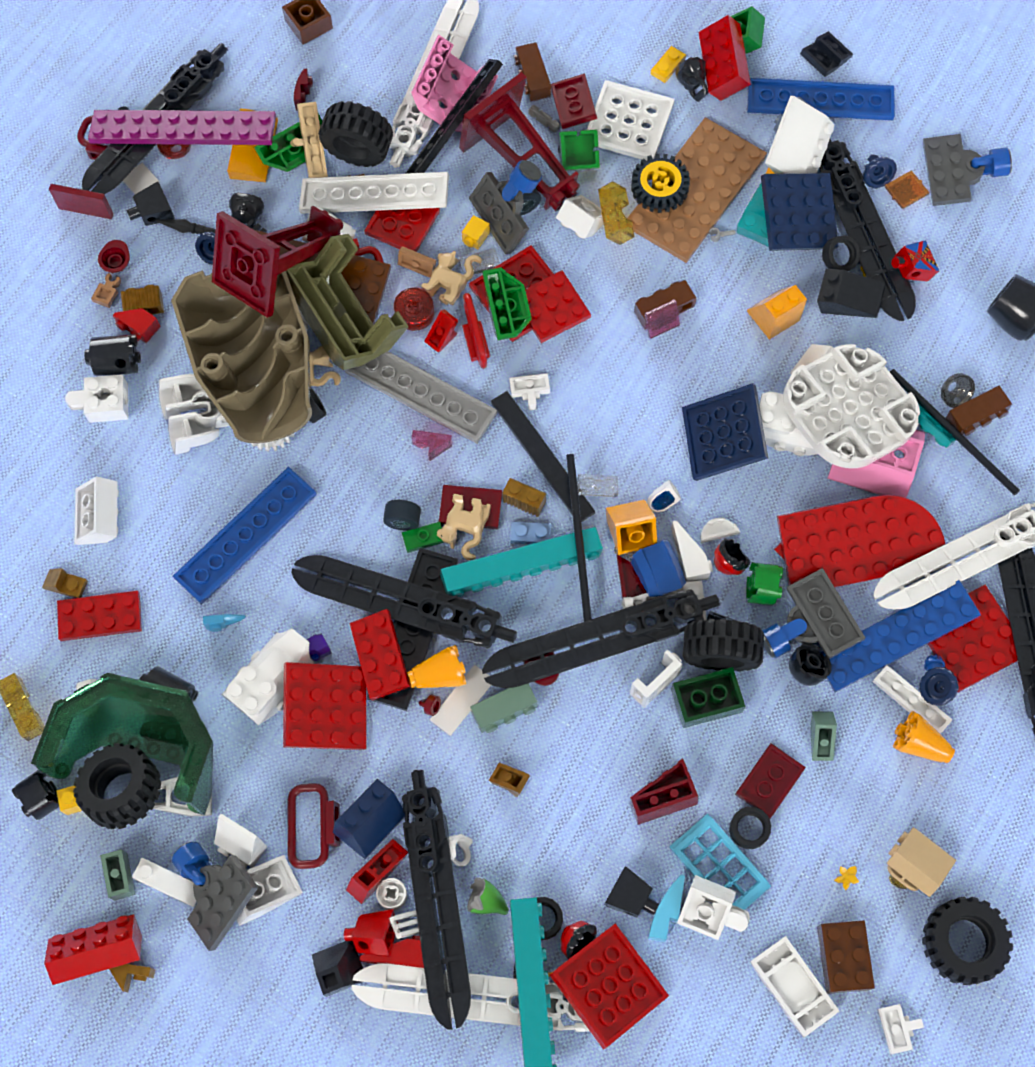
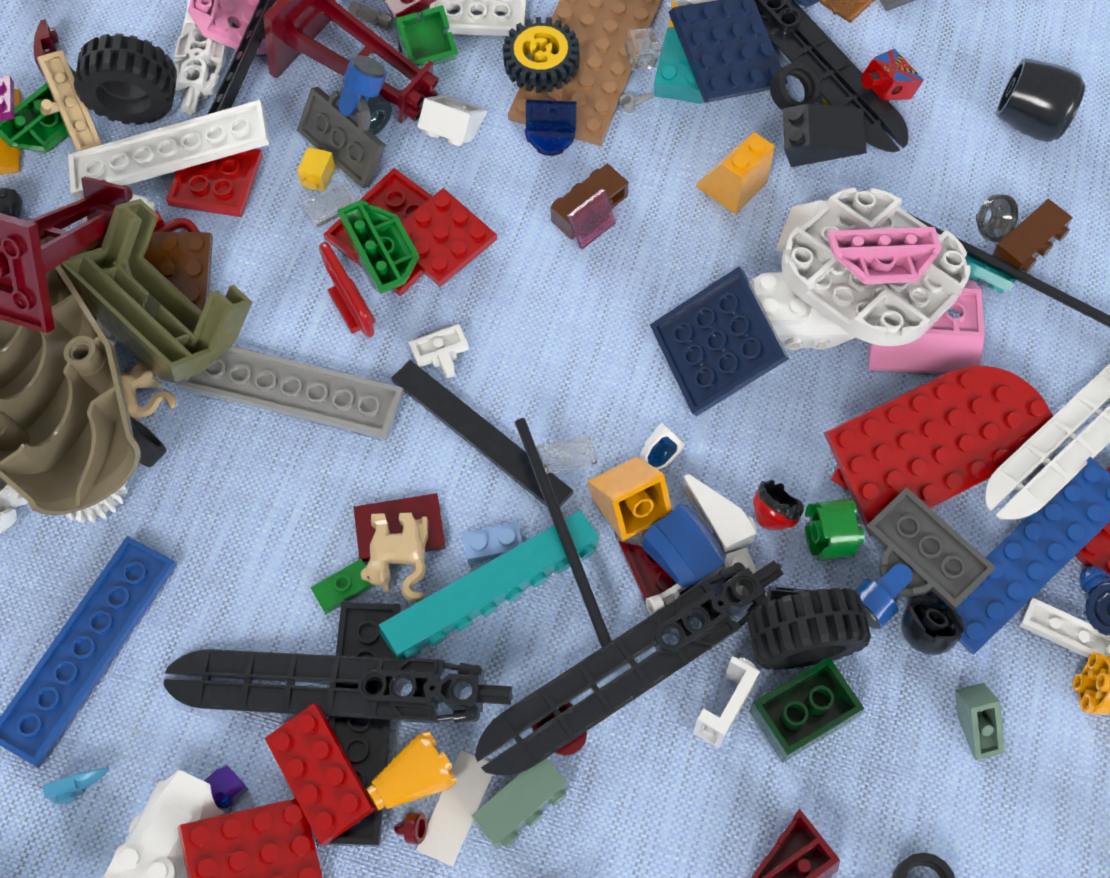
camera: 15 degrees left, 5 degrees down
(402, 515) = (304, 562): black wheel -> none
(415, 308) = (260, 281): clear red wheel -> none
(416, 261) = (246, 223): medium nougat plate -> none
(436, 442) = (328, 450): clear pink slope -> none
(442, 331) = (301, 302): red slope -> none
(450, 280) = (295, 235): tan animal -> none
(524, 497) = (470, 495): pearl gold brick -> none
(616, 225) = (498, 117): clear yellow arch -> none
(652, 240) = (550, 125): none -> clear blue slope
(717, 529) = (746, 472): white plate -> none
(736, 196) = (642, 48): none -> clear brick
(770, 780) = (928, 806): dark red tile -> none
(857, 401) = (886, 254): none -> bright pink wedge

